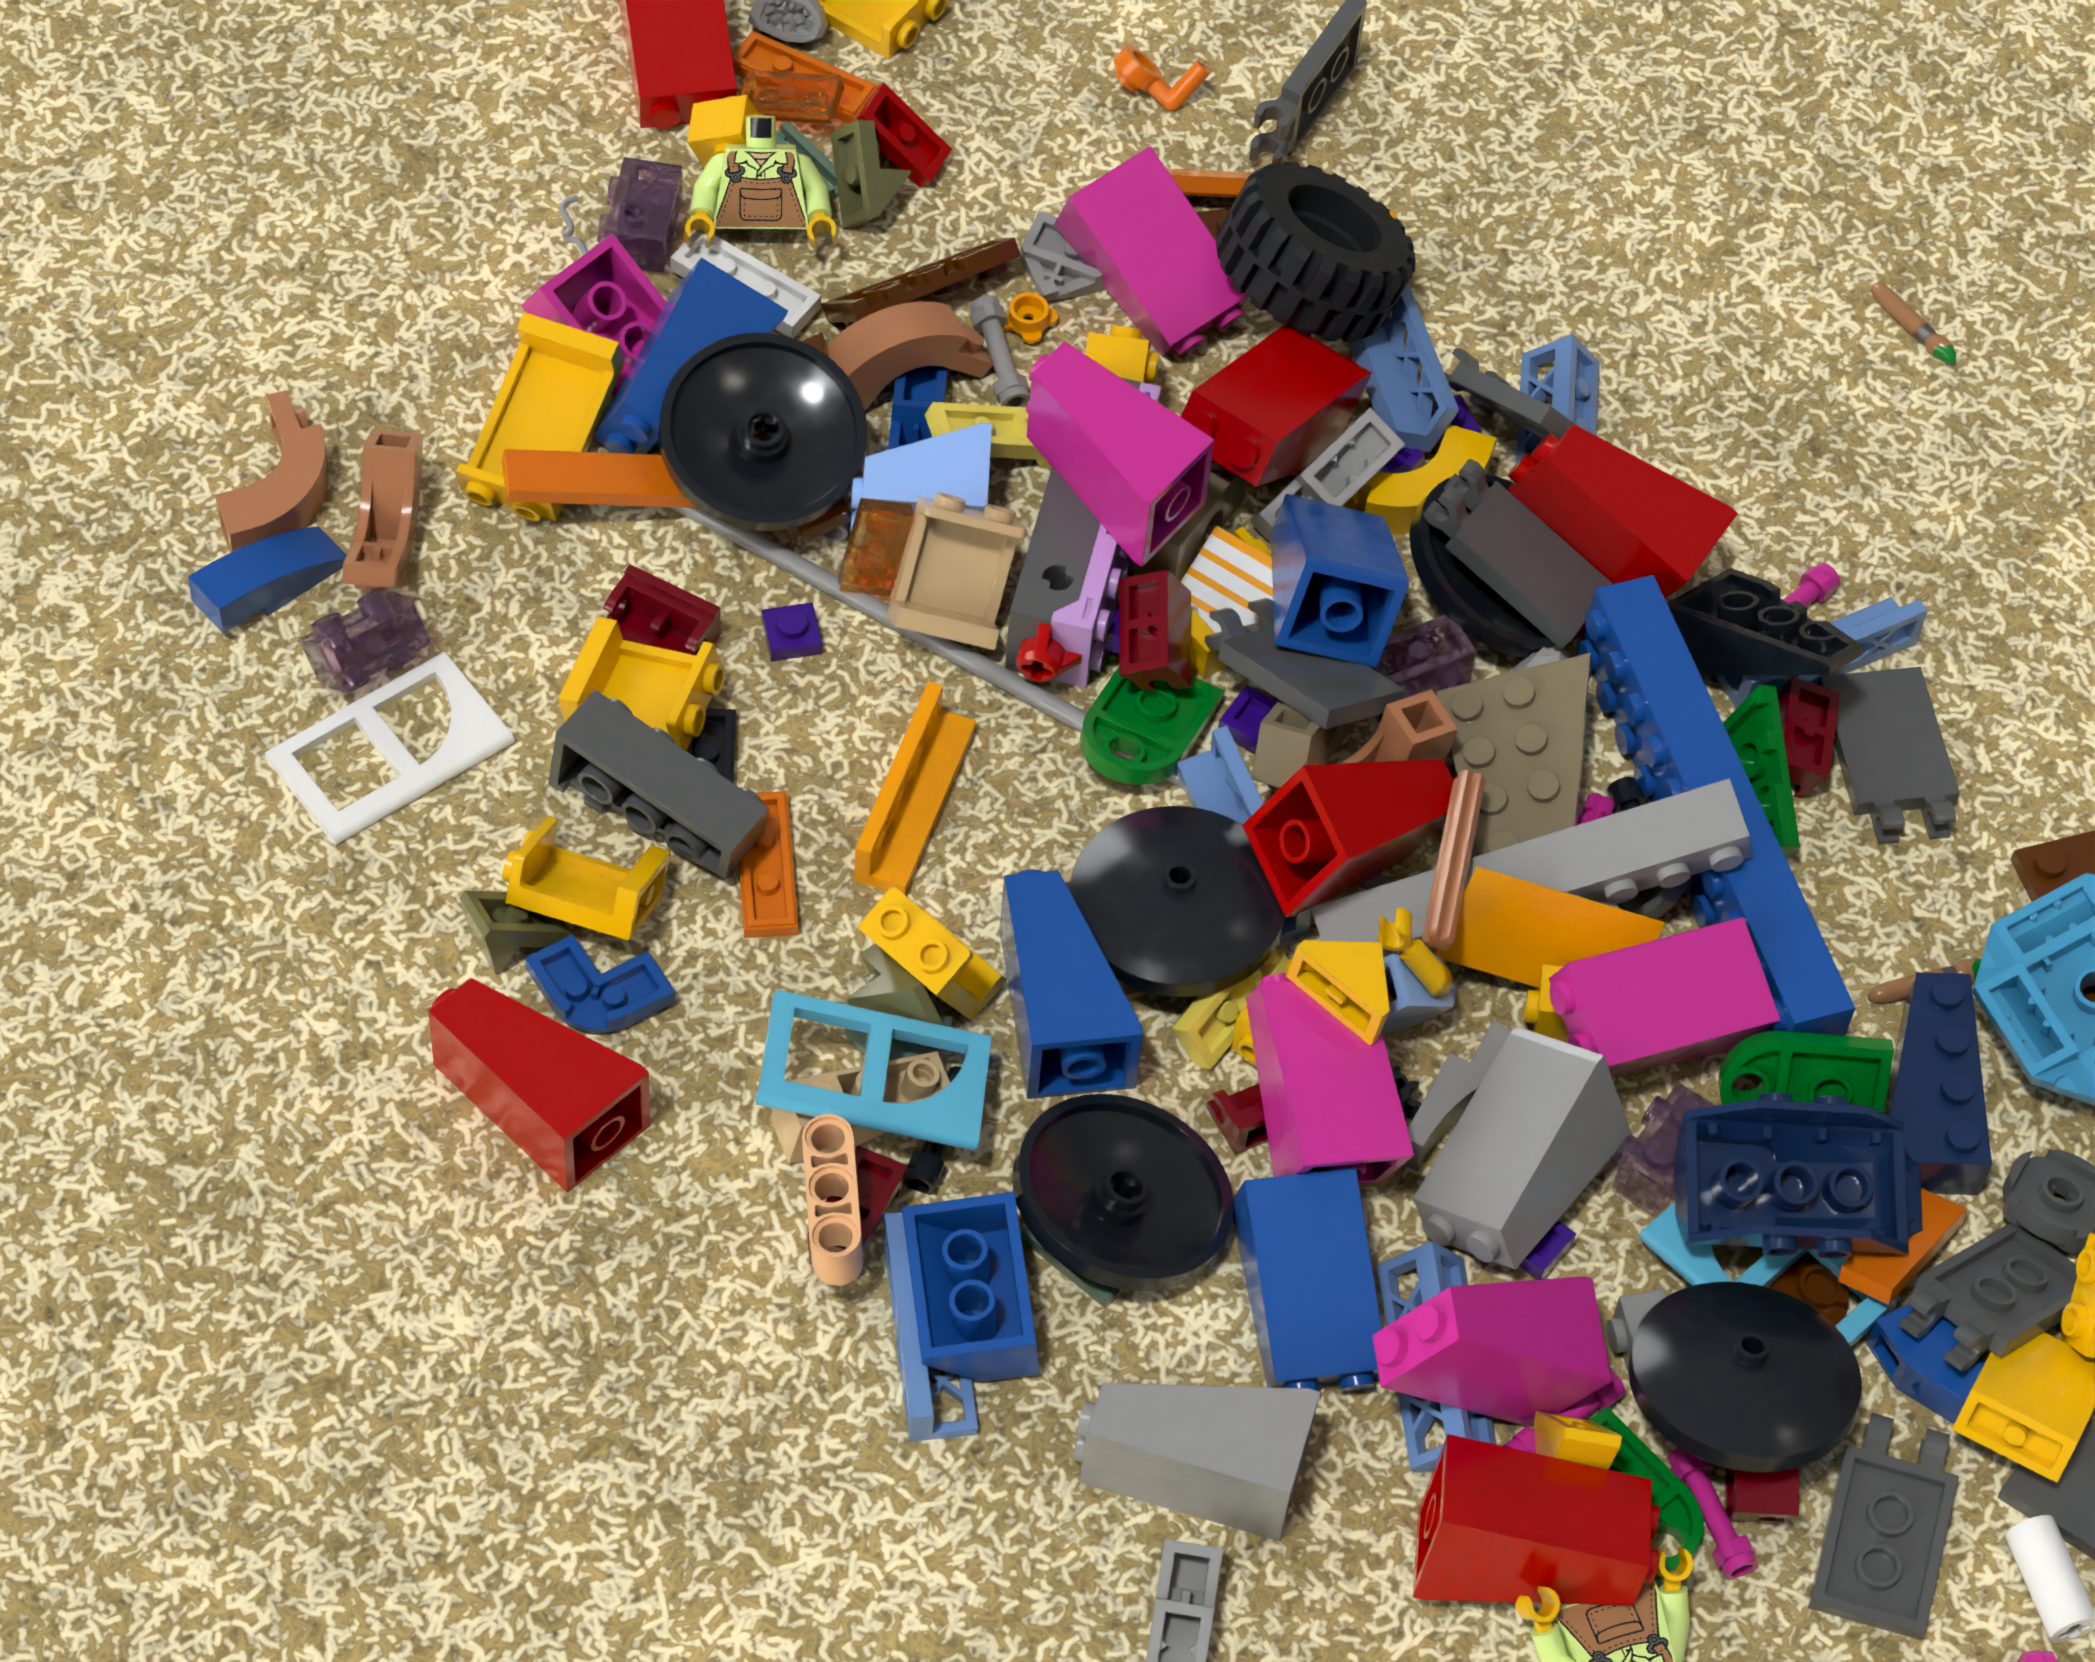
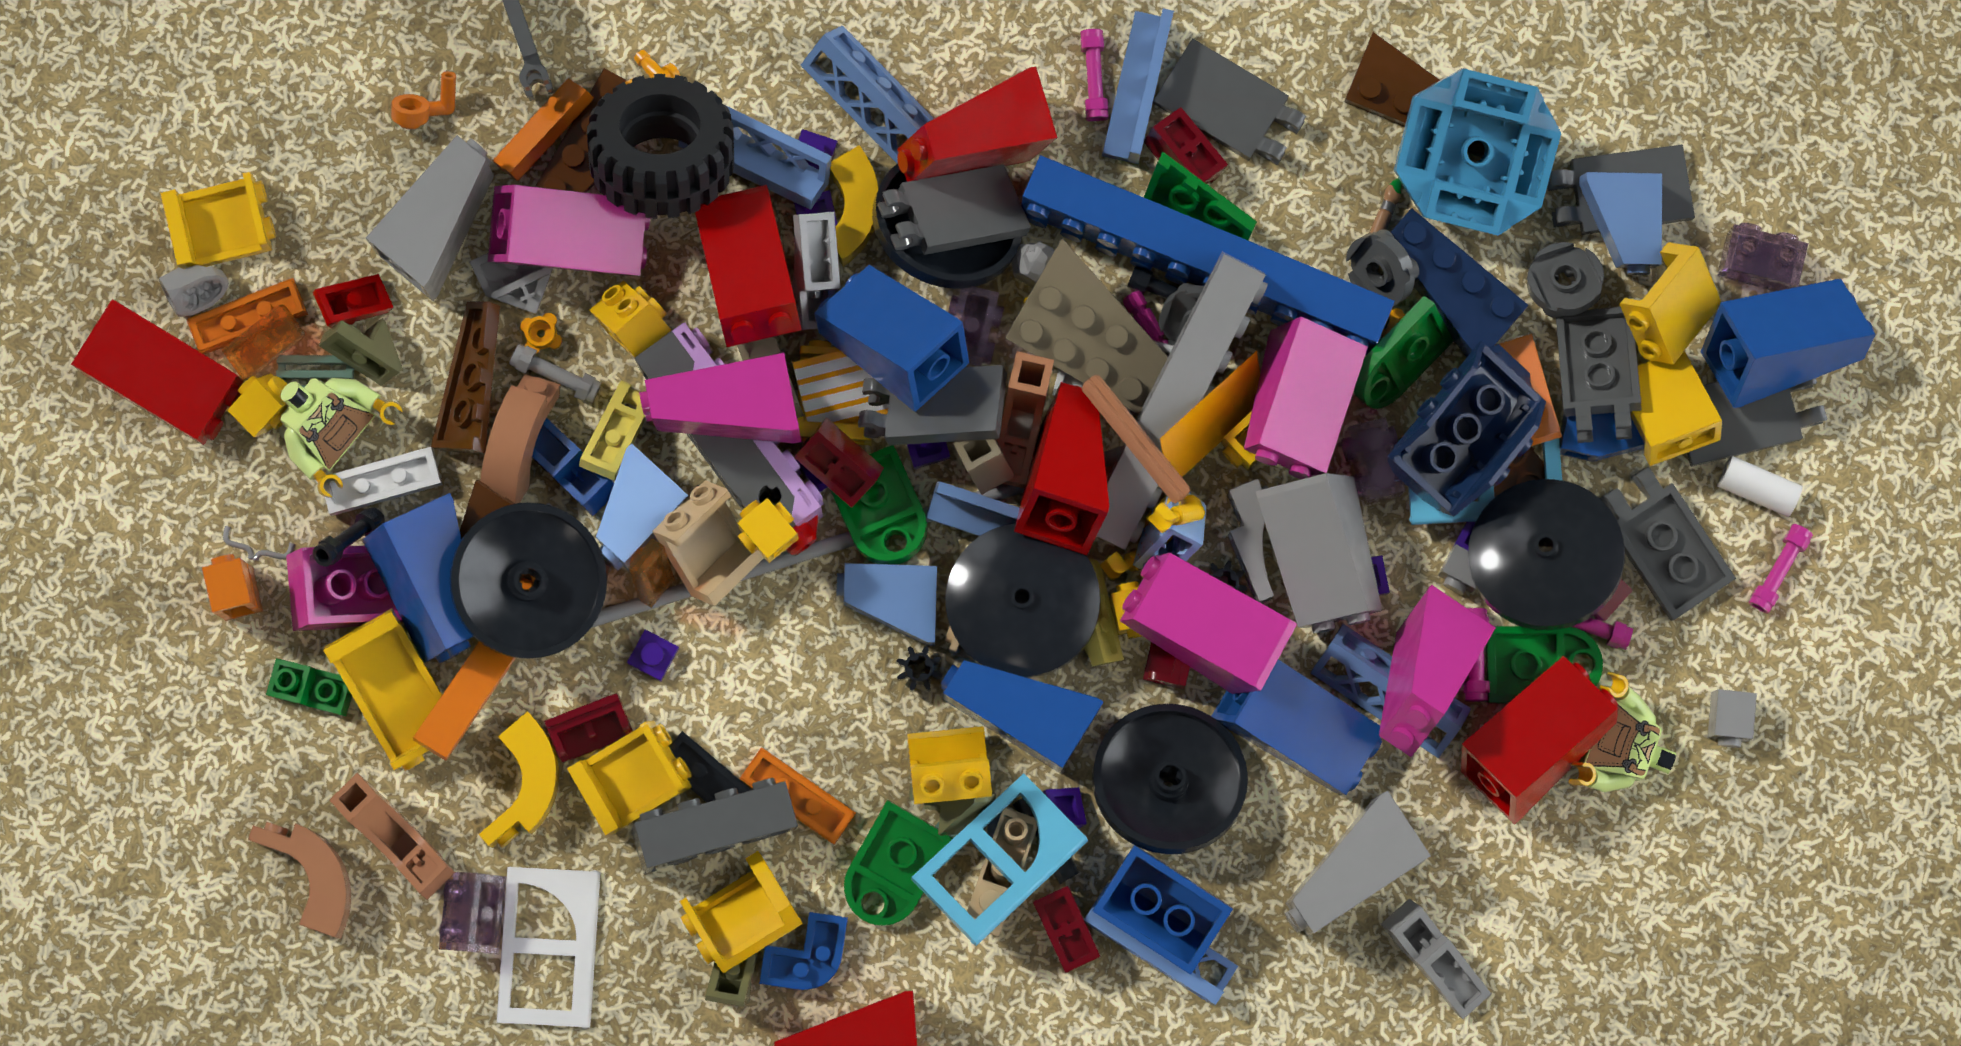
camera: 50 degrees left, 25 degrees up
(264, 575) = (373, 929): blue slope -> none
(473, 360) = (309, 687): none -> green slope
(516, 218) = (232, 587): none -> orange piece
(549, 617) = (539, 781): none -> yellow arch
(634, 257) = (331, 549): none -> black bar
(644, 210) = (283, 506): clear purple brick -> none
(747, 988) = (886, 862): none -> green tile
(837, 1221) = (1050, 934): light nougat beam -> none
(912, 794) = (823, 677): light orange fence -> none
(999, 1120) = (1069, 803): none -> dark purple plate
(1006, 860) = (913, 659): none -> black gear
(1019, 586) = (766, 529): none -> yellow brick
(1052, 138) = (434, 216): none -> light grey slope
(1063, 794) = (894, 596): none -> medium blue slope
(1345, 981) = (1179, 574): yellow slope -> none
(1495, 395) = (862, 119): dark grey tile -> none
(1575, 1440) = (1505, 671): yellow slope -> none
(1746, 629) = (1112, 124): black wedge -> none
(1884, 993) = (1382, 250): none -> dark grey plate

